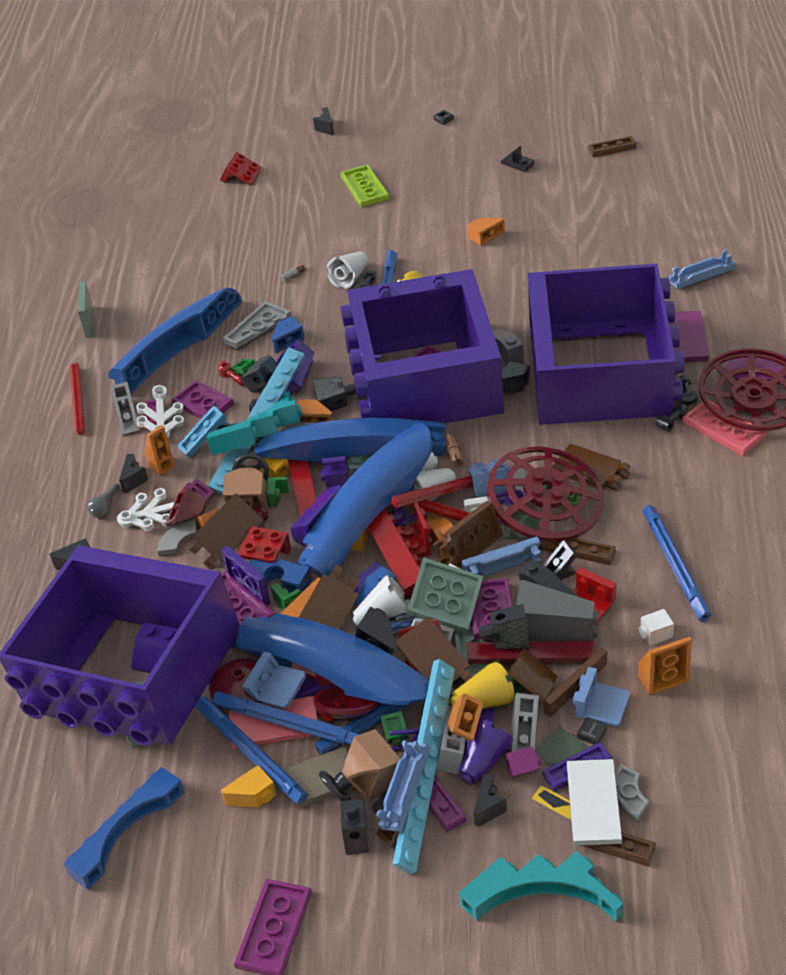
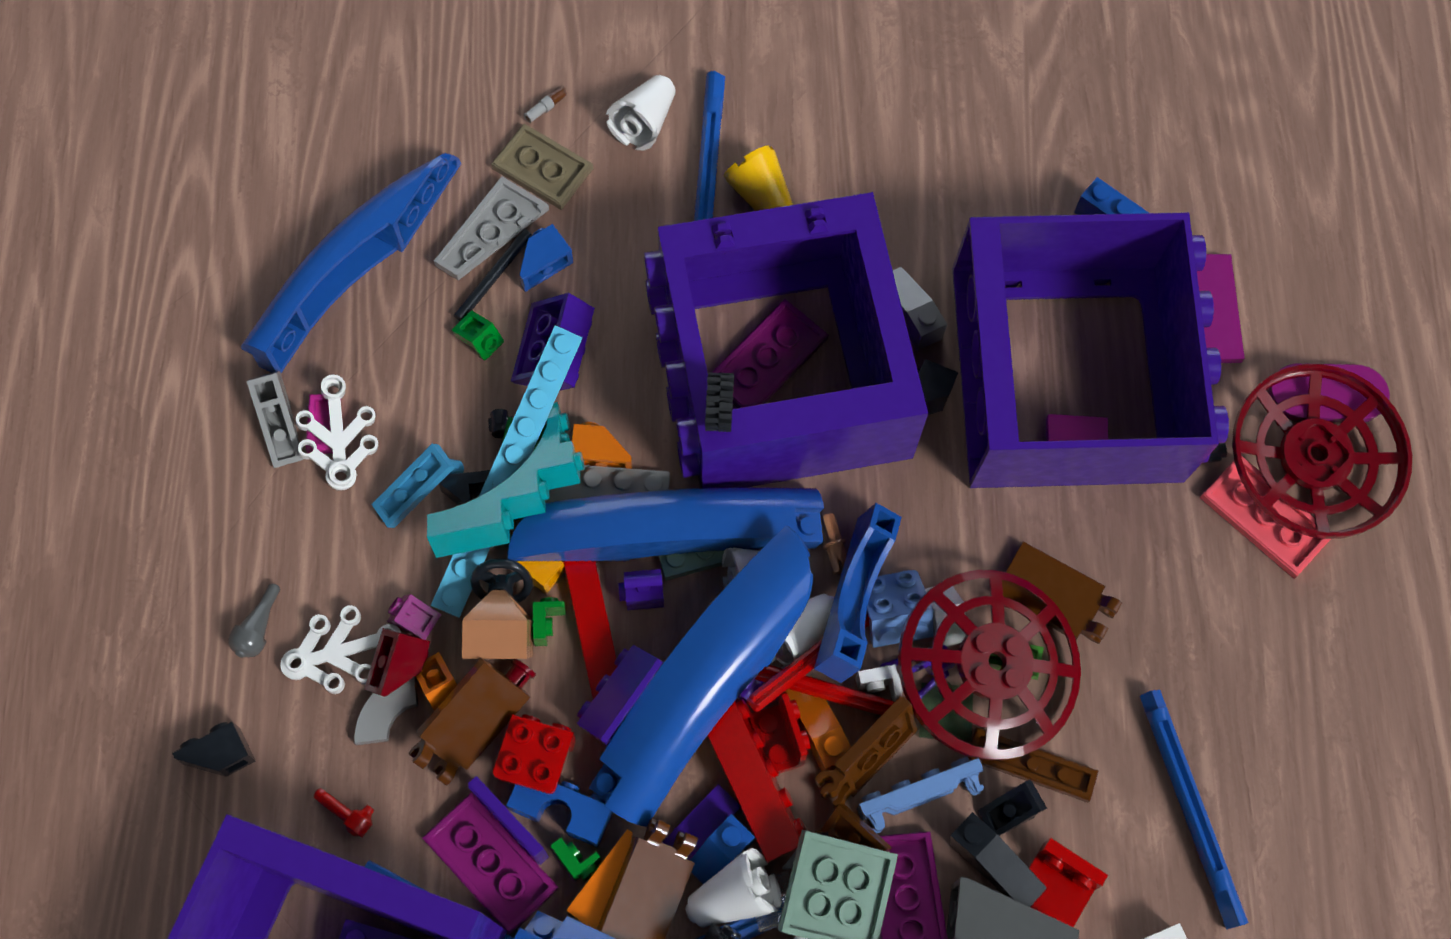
camera: 10 degrees left, 25 degrees up
(78, 409) = (189, 380): red axle -> none
(85, 309) = (186, 177): sand green tile -> none
(132, 474) = (296, 573): black slope -> none
(158, 451) = (343, 535): orange slope -> none
(200, 398) = (408, 400): magenta tile -> none
(225, 371) = (442, 333): red piece -> none
(256, 346) = (493, 275): none -> black bar
(263, 370) = (506, 356): black torso -> none
(290, 298) = (542, 166): none -> dark tan tile
(332, 392) = (628, 403): torso -> none
(369, 277) = (671, 155): black bar -> none
(376, 350) = (719, 402): none -> black tyre
(458, 467) = (844, 635): none -> blue arch
(485, 229) = (872, 32): orange slope -> none
(667, 423) = (1176, 505): black bar -> none
(702, 270) = (1233, 163): medium blue piece -> none

